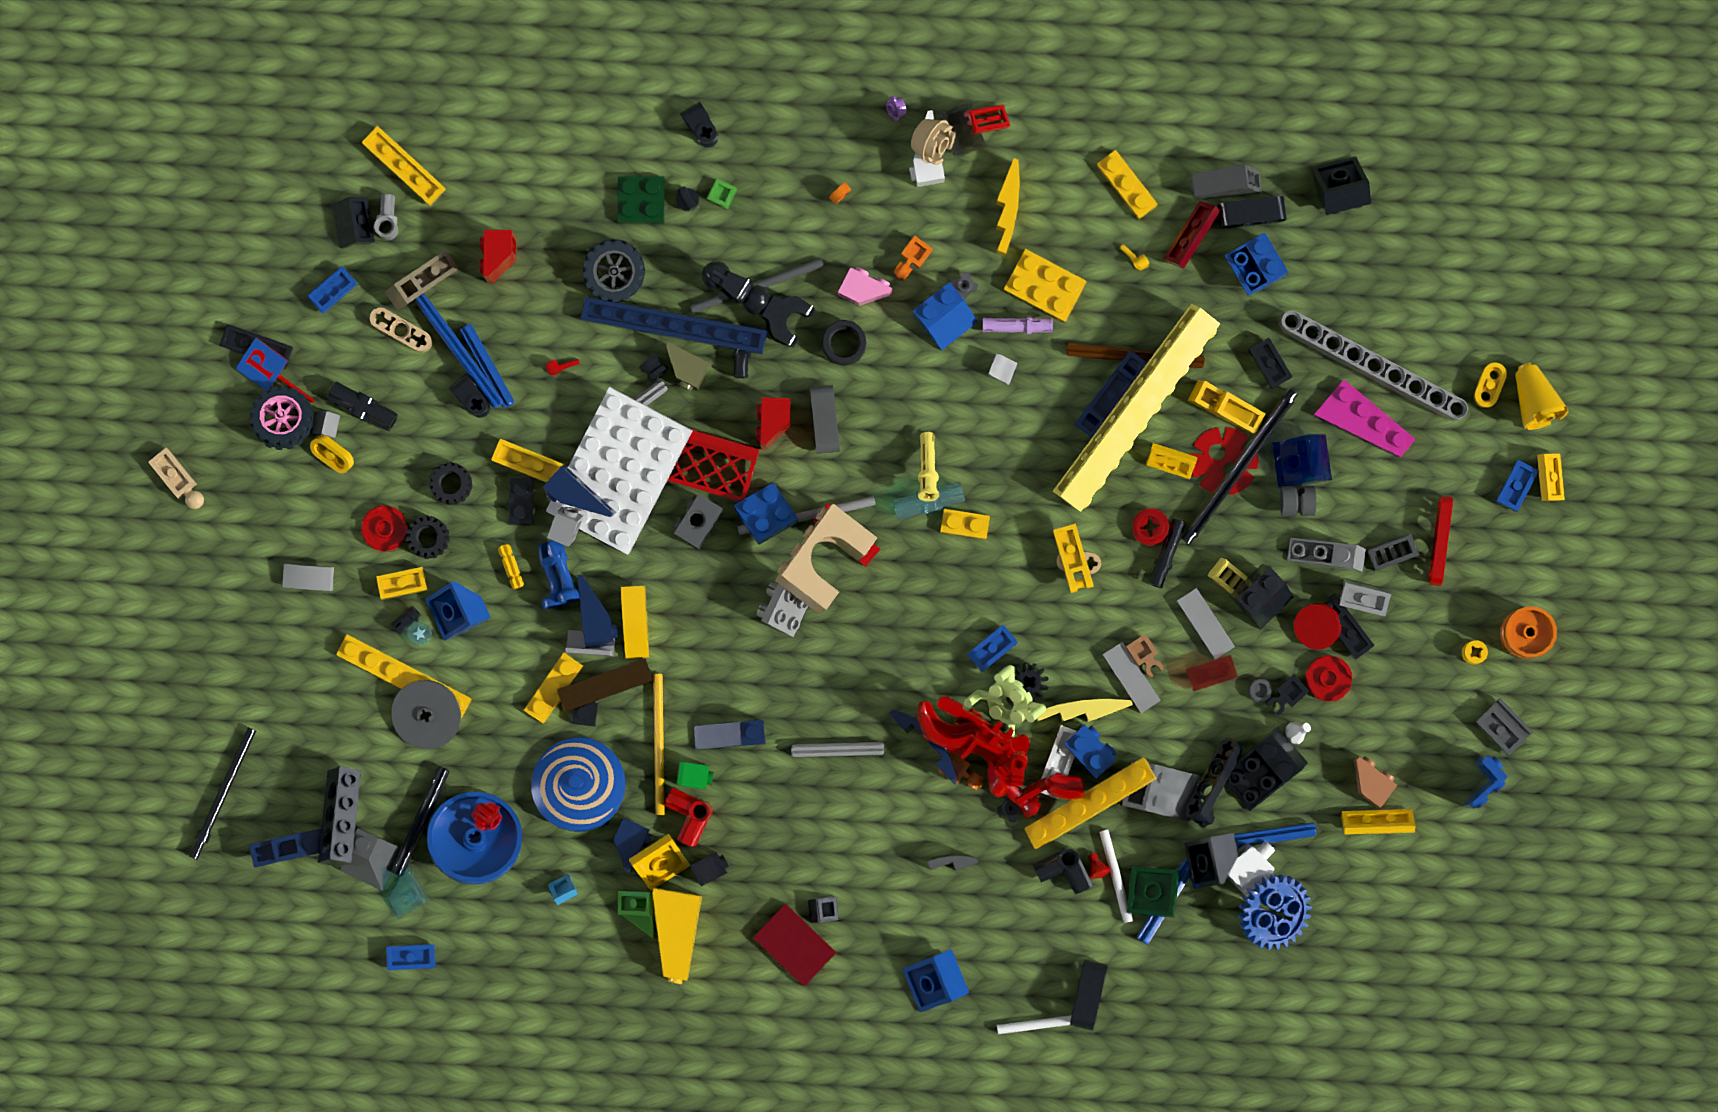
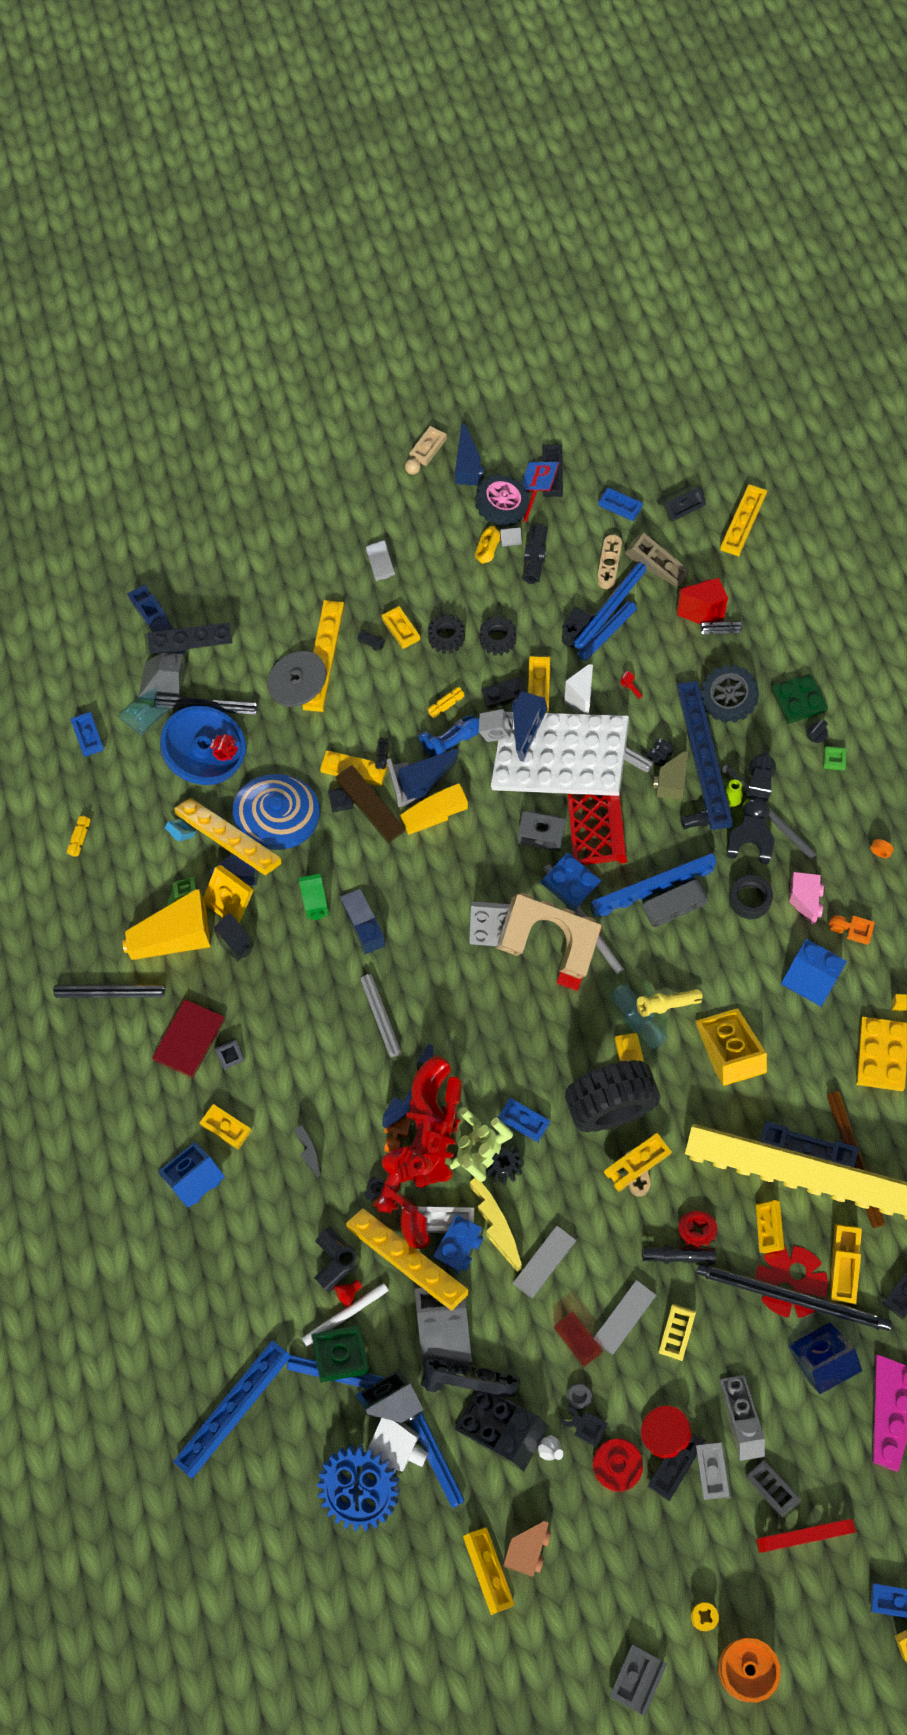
camera: 75 degrees right, 20 degrees down
(204, 834) = (145, 557): black bar -> none
(212, 435) = (468, 462): none -> dark blue slope
(384, 528) = (440, 601): red tile -> none
(386, 216) = (695, 521): light grey axle -> none
(419, 633) = (364, 655): clear light blue tile -> none
(456, 609) = (393, 673): blue slope -> none
(527, 245) = (721, 627): none -> black axle
(529, 997) = (78, 836): none -> yellow axle
(550, 653) = (382, 753): none -> black axle
(560, 424) = (579, 691): none -> white slope
(592, 843) = (228, 836): none -> yellow plate
(658, 744) = (335, 865): yellow piece -> none
(686, 805) = (272, 915): red piece -> none
(699, 122) = (885, 721): black piece -> none
(716, 1010) = (109, 991): none -> black axle
(730, 319) = (734, 793): none -> lime cone
(774, 418) = (654, 855): red slope -> none
(799, 423) = (645, 889): none -> blue plate
(899, 934) = (225, 1126): none -> yellow plate
(965, 278) = (850, 988): flat silver plate -> none
(989, 424) = (732, 1047): none -> yellow slope
(1002, 369) = (788, 1040): slope -> none
(1009, 559) = (612, 1096): none -> black tyre
(1024, 325) = (838, 1048): lavender pin -> none
(1033, 1024) = (179, 1293): white bar -> none
(1088, 995) = (218, 1324): black beam -> none
(1143, 652) = (572, 1264): medium nougat plate -> none
(1167, 1003) = (231, 1409): none -> blue plate
(1262, 595) = (673, 1364): black slope -> none
(1297, 500) = (783, 1364): dark grey wheel -> none
(1492, 769) = (588, 1679): blue bracket -> none

